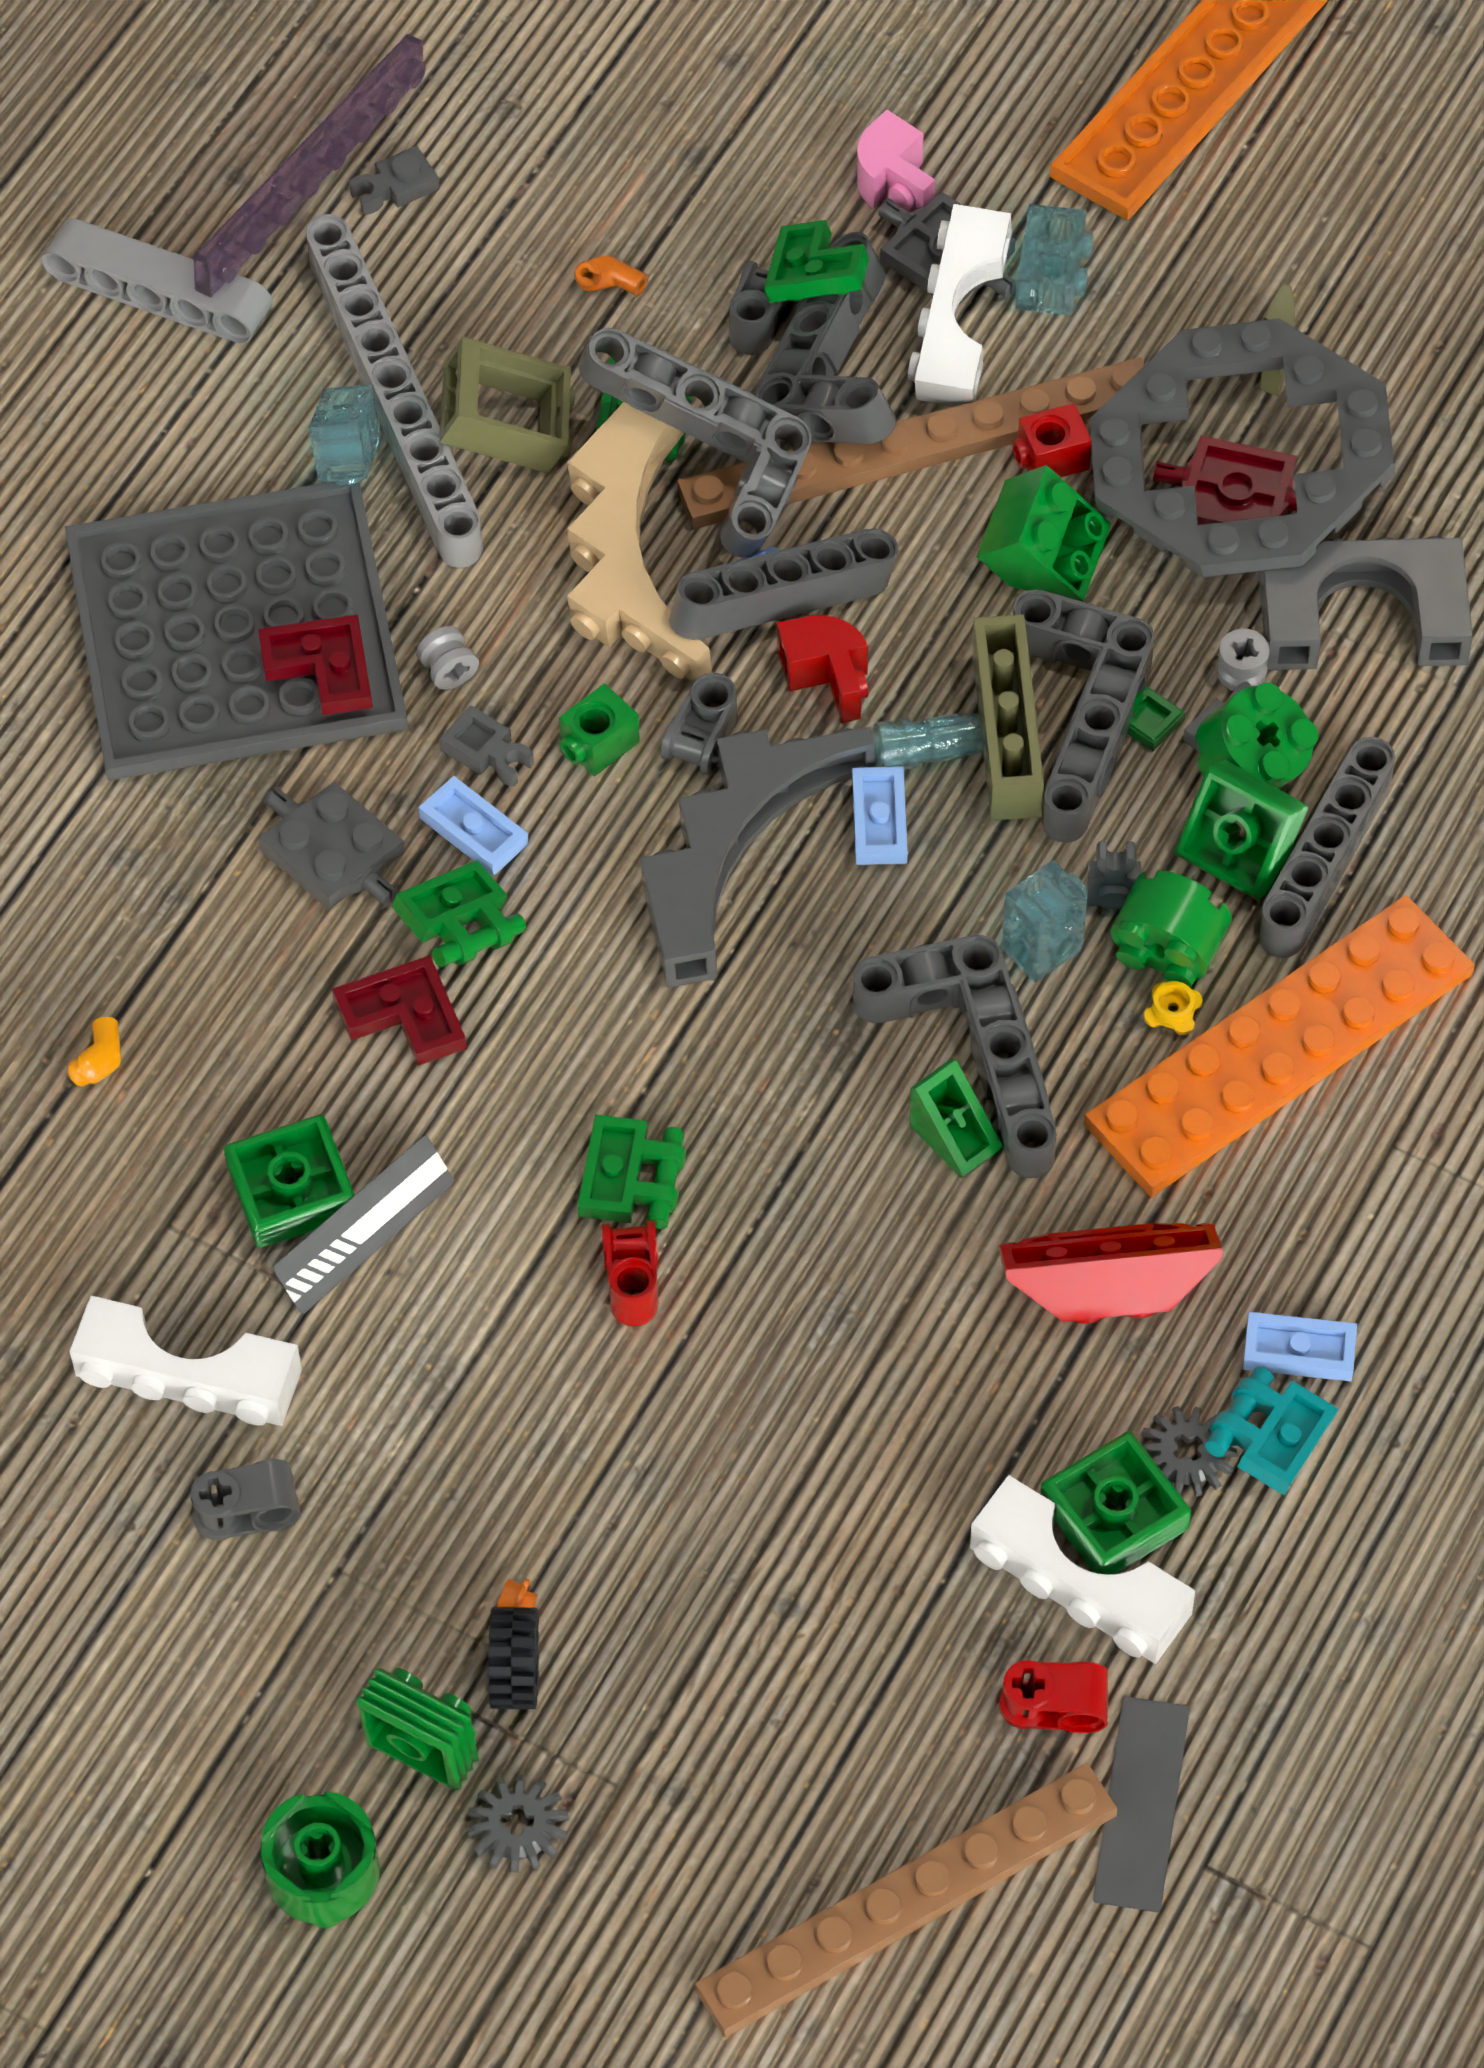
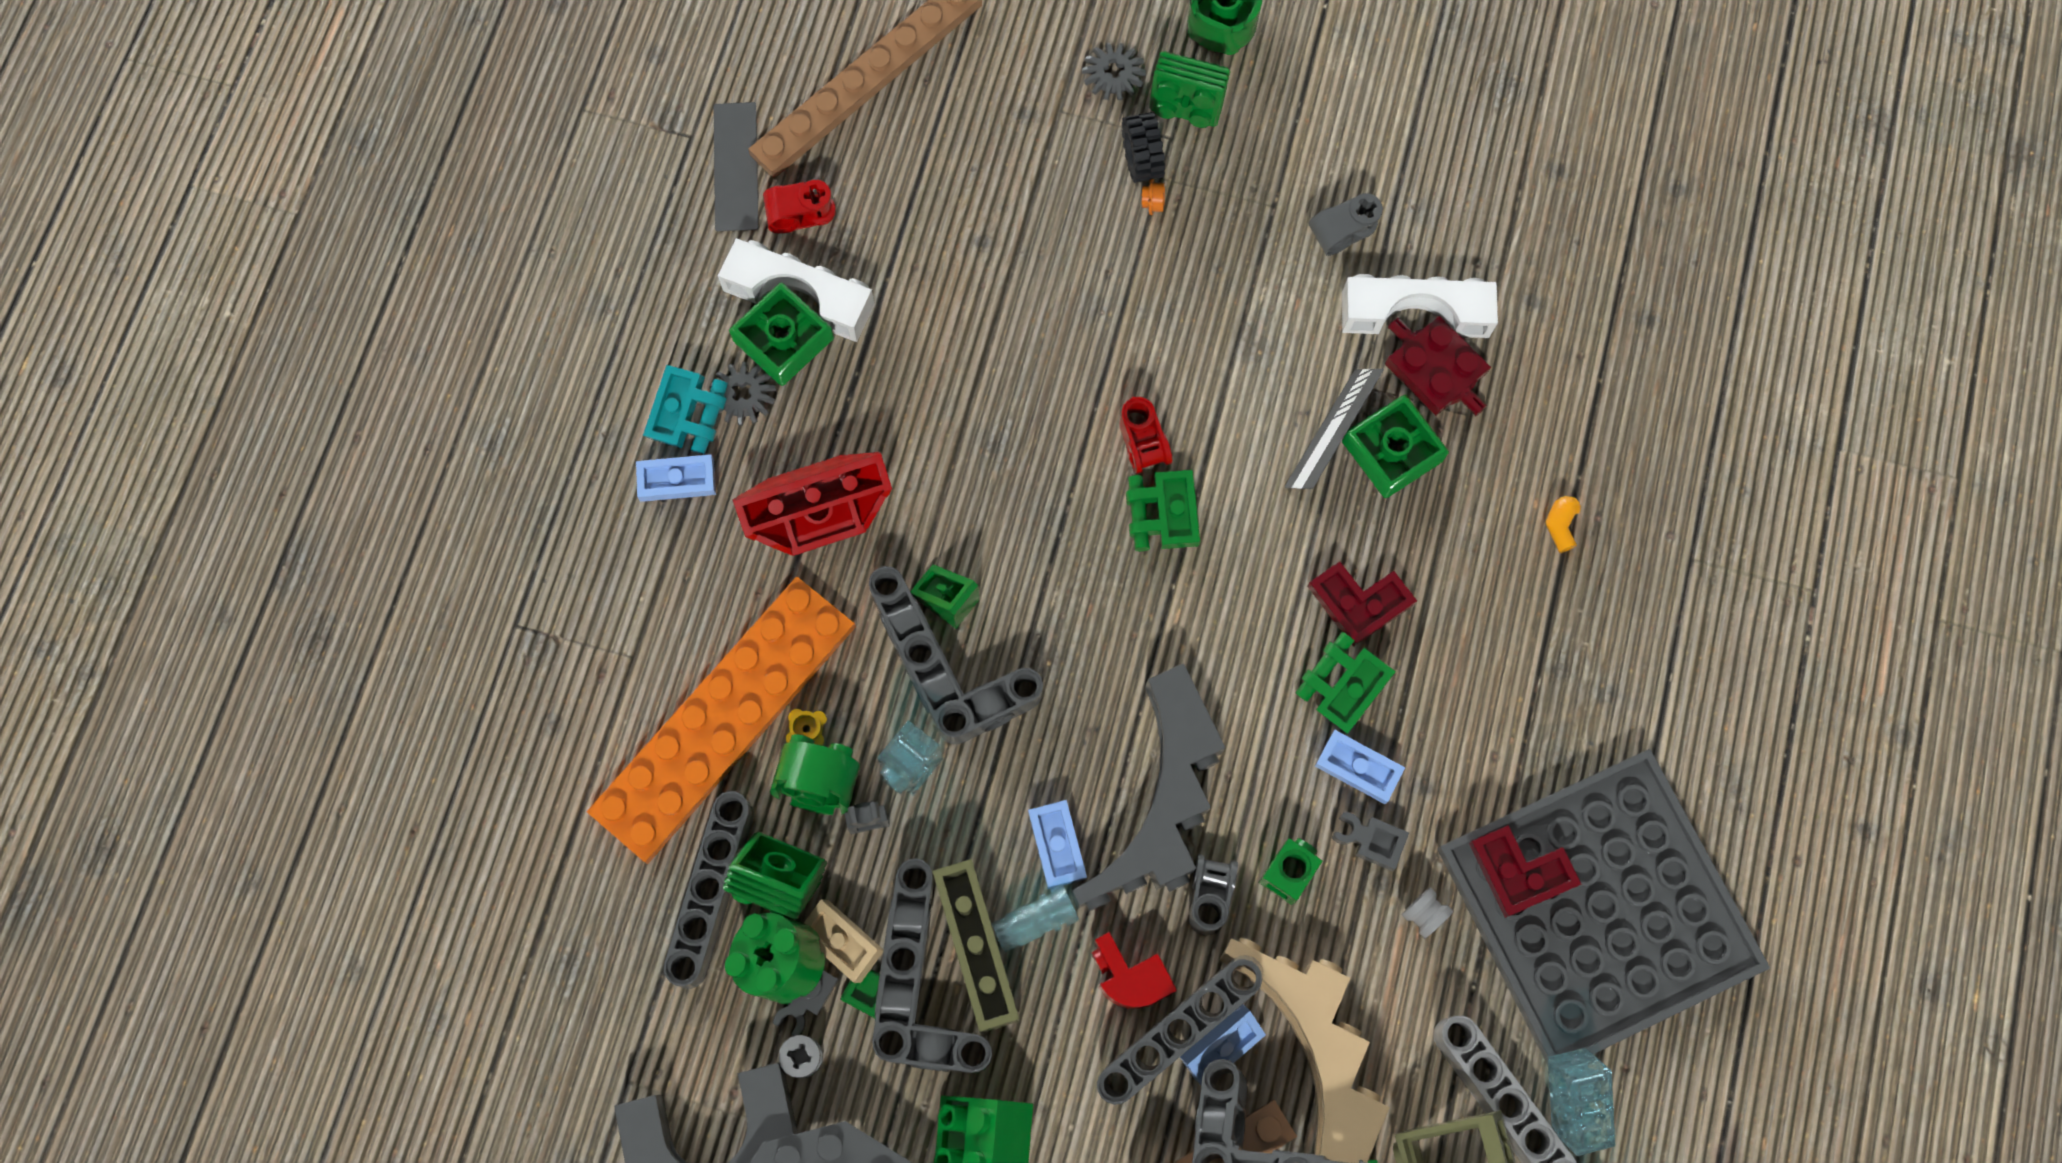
camera: 165 degrees right, 15 degrees up
(187, 1285) = (1437, 366): none -> dark red plate
(331, 845) = (1459, 729): dark grey plate -> none
(1166, 755) = (843, 941): none -> tan plate

